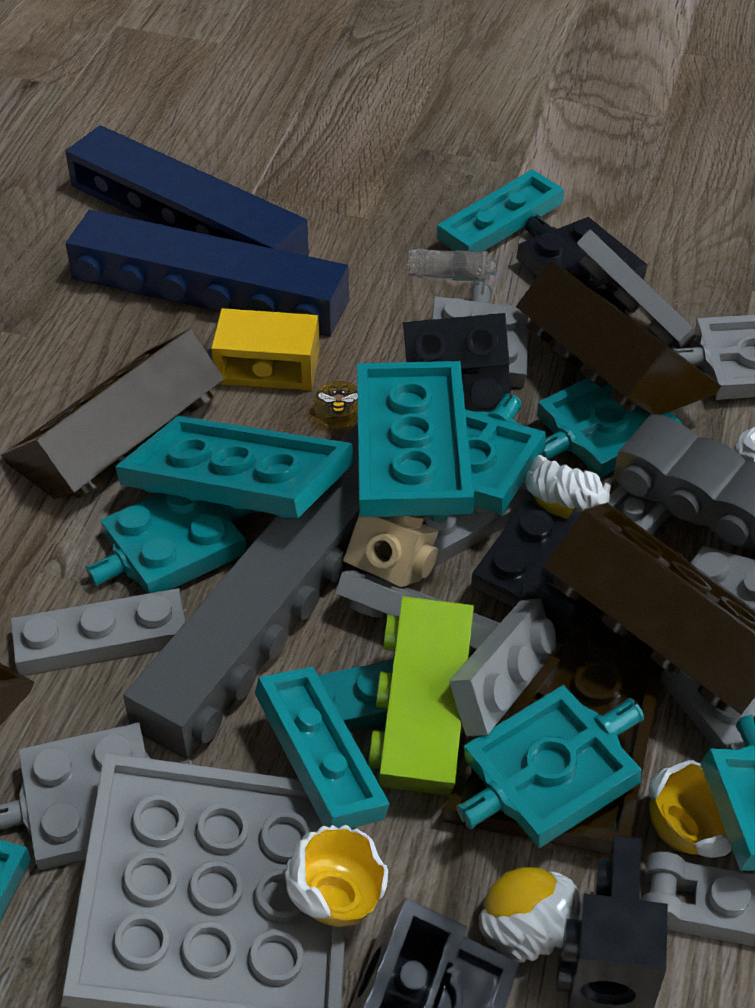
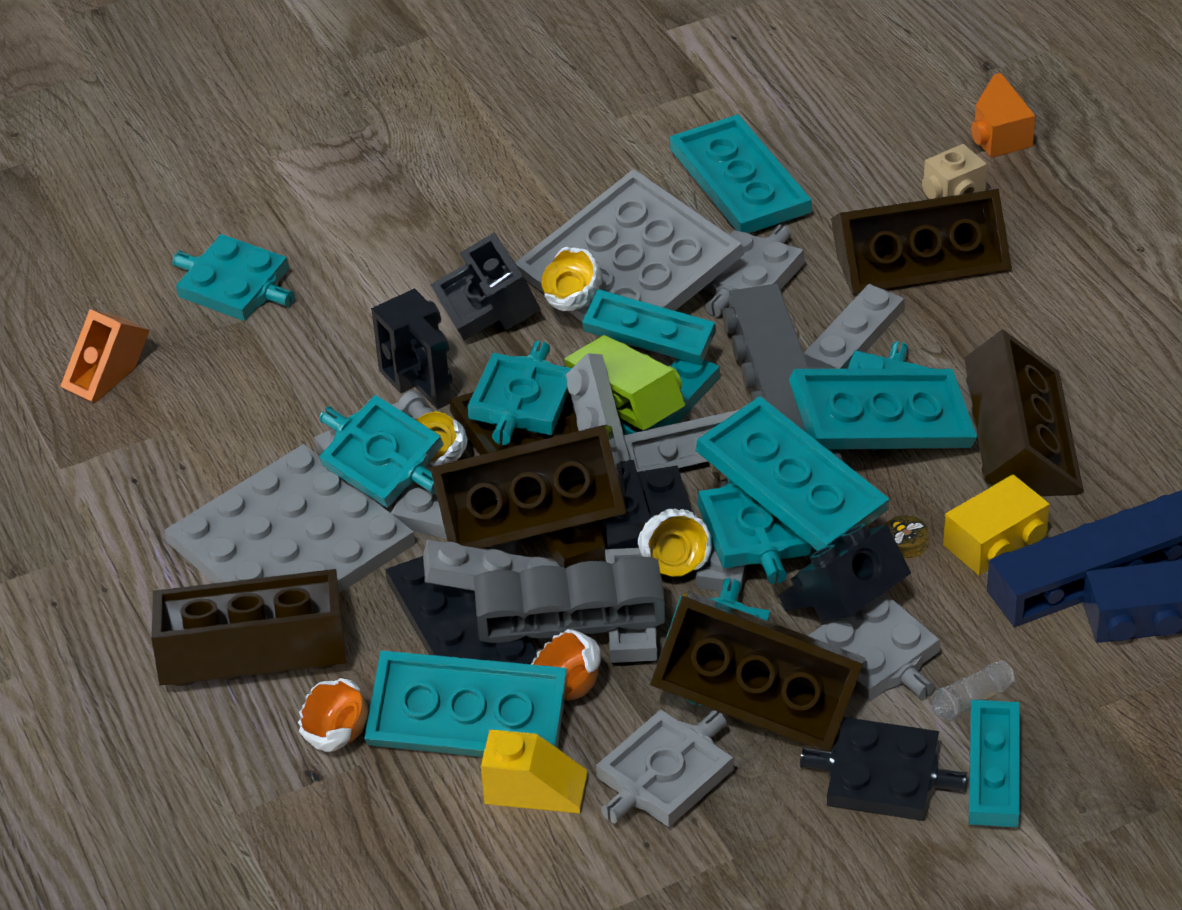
camera: 140 degrees right, 5 degrees down
(528, 912) = (470, 354): white hair -> none
(634, 292) = (794, 727): light grey plate -> none

